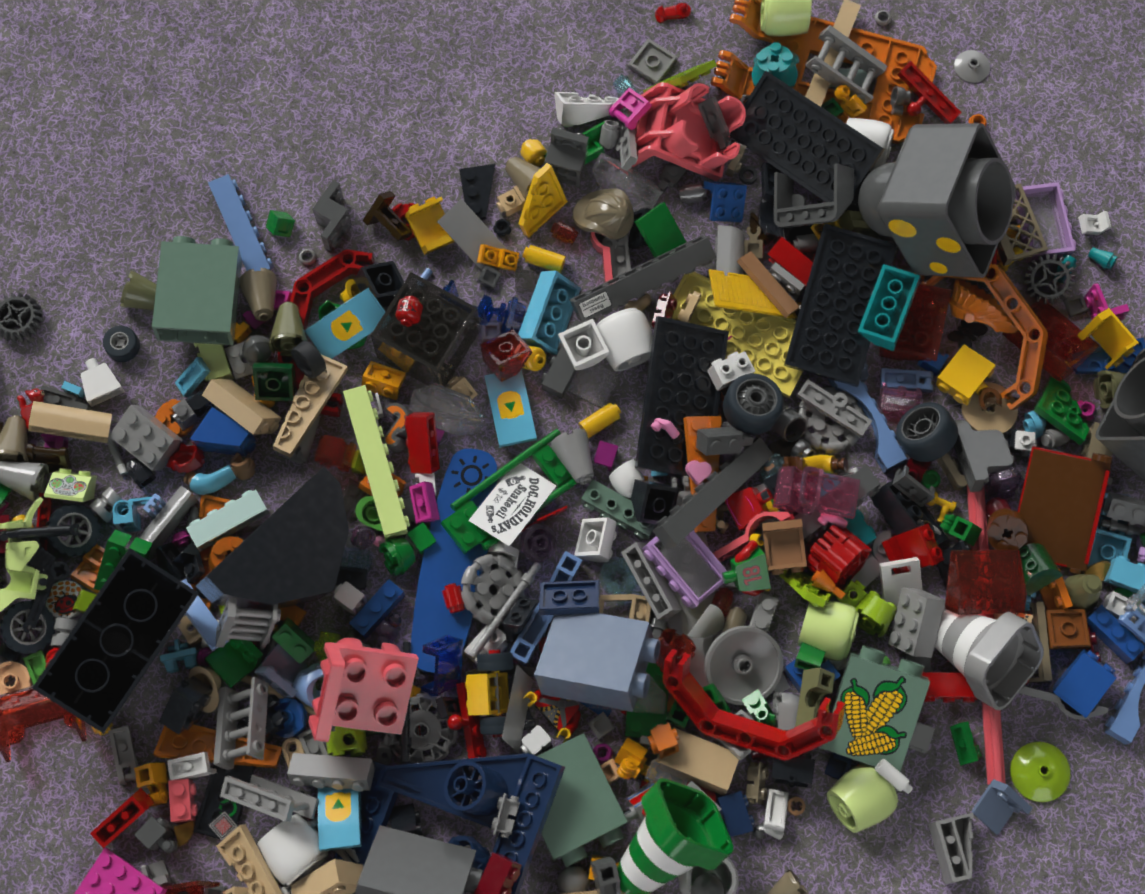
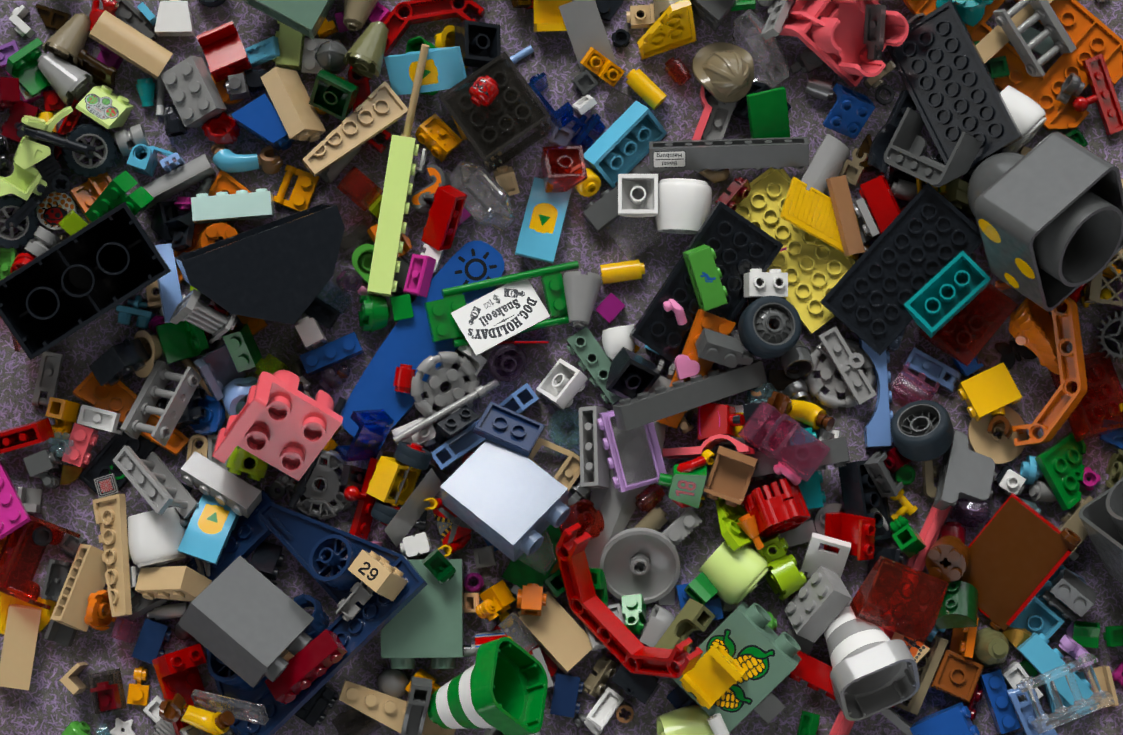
camera: 30 degrees right, 10 degrees up
(19, 504) = (52, 101): none -> red plate
(102, 457) = (146, 91): none -> teal cone
(157, 391) = (224, 51): none -> red panel
(160, 804) = (57, 444): none -> clear light blue plant
(283, 477) = (302, 191): none -> light orange plate
(308, 359) = (373, 89): black tyre -> none
(346, 343) = (415, 90): none -> tan bar
(498, 294) = (584, 104): none -> white tile
(517, 778) = (378, 574): none -> tan brick
(567, 747) = (439, 566): none -> dark green bracket
(677, 386) = (705, 277): none -> bright green brick
(692, 302) = (751, 209): tan plate -> none
(709, 623) = (627, 512): white sticker -> none
(852, 105) = (1020, 72): light orange plate -> none
(860, 727) = (712, 676): none -> yellow panel

